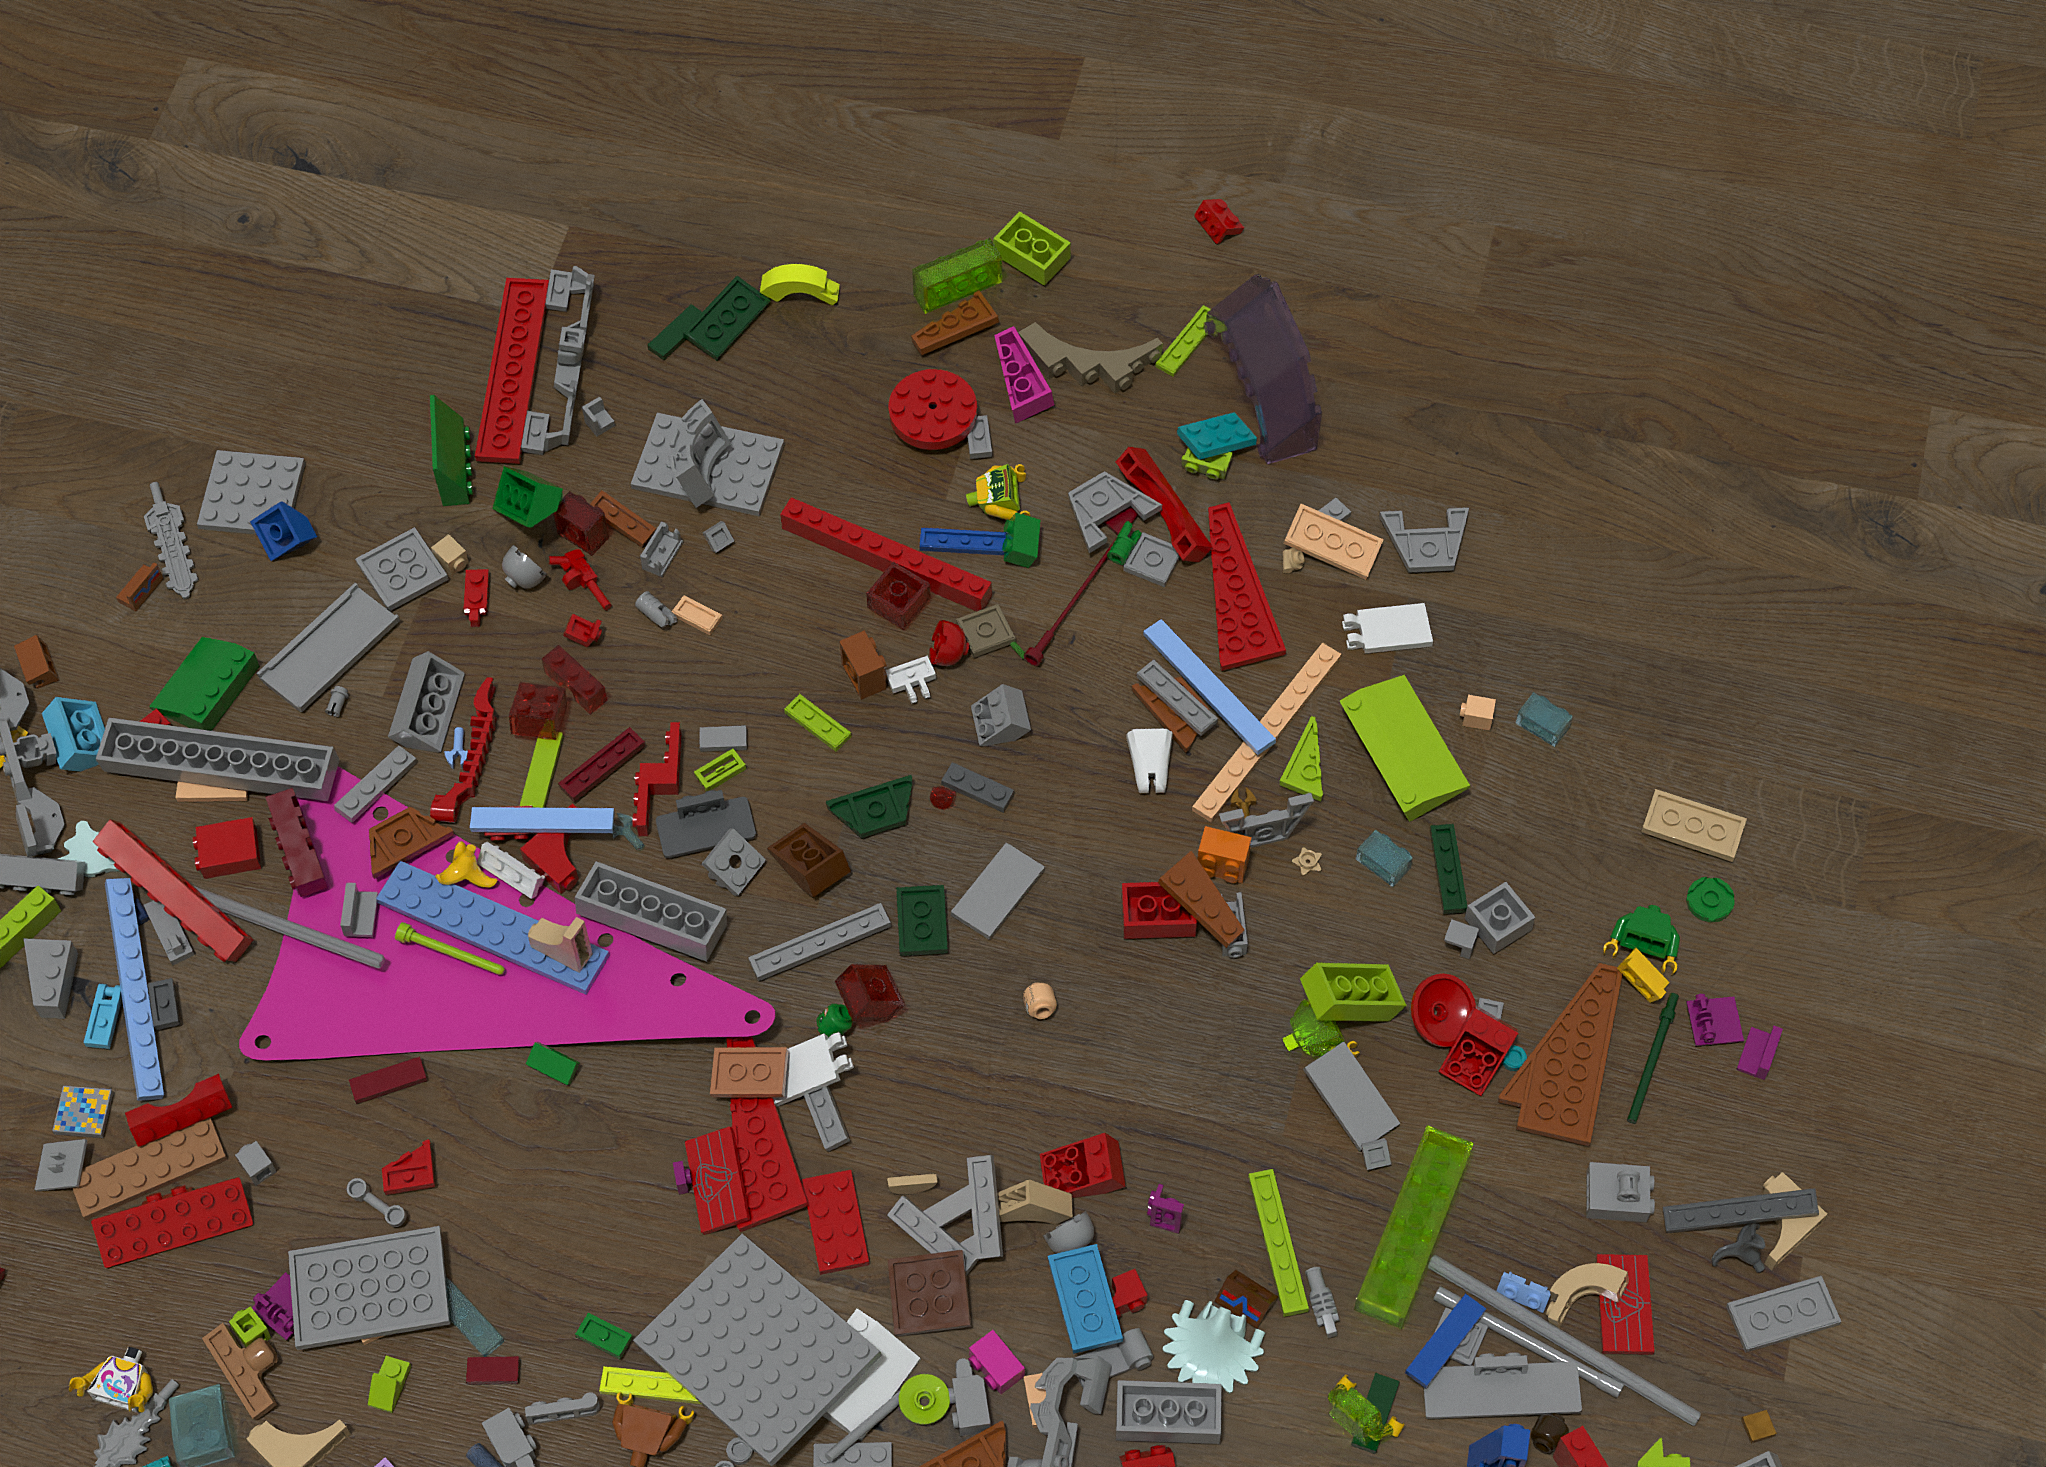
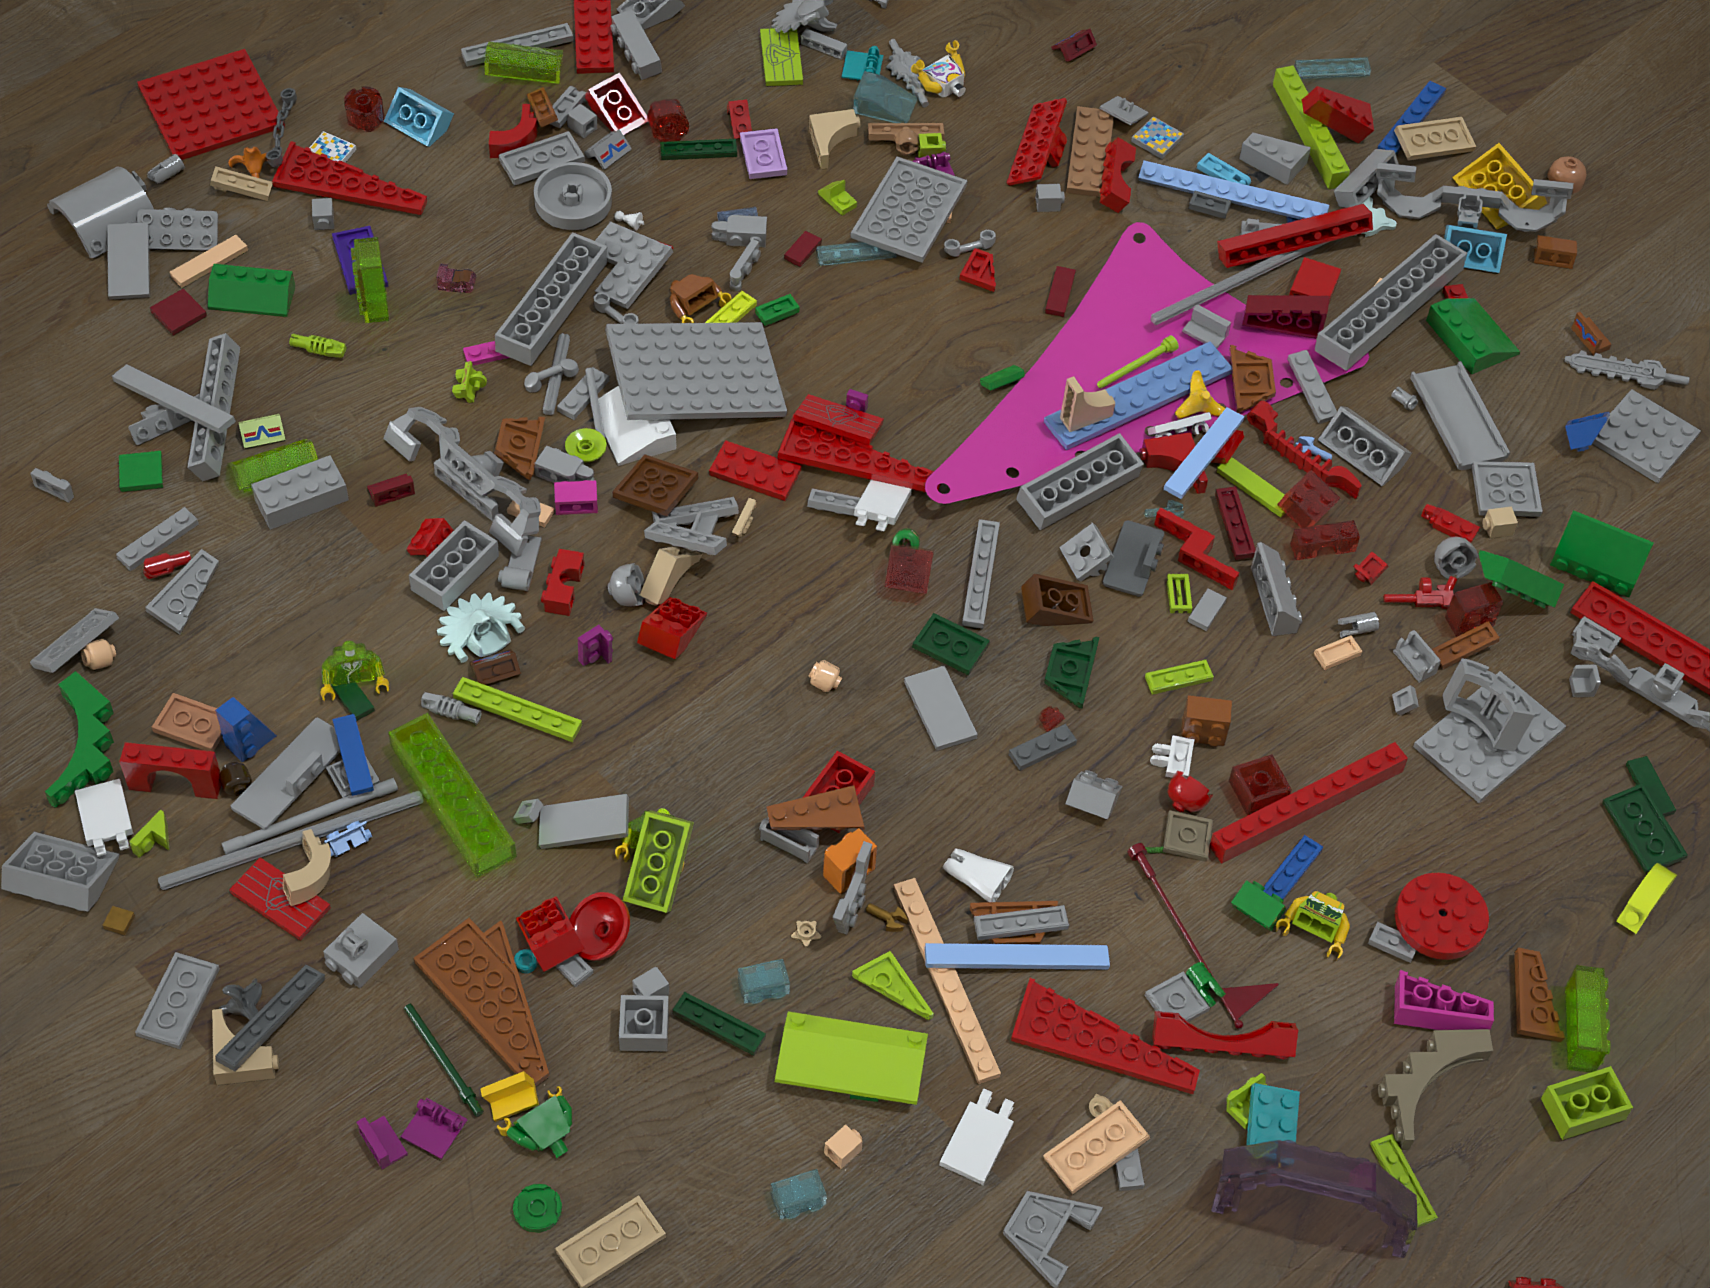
camera: 120 degrees right, 5 degrees down
(668, 688) = (1275, 591): none -> light grey slope
(749, 1072) = (901, 466): nougat plate -> none
(1085, 1298) = (570, 556): dark azure plate -> none
(1101, 500) = (1261, 988): light grey wing -> none

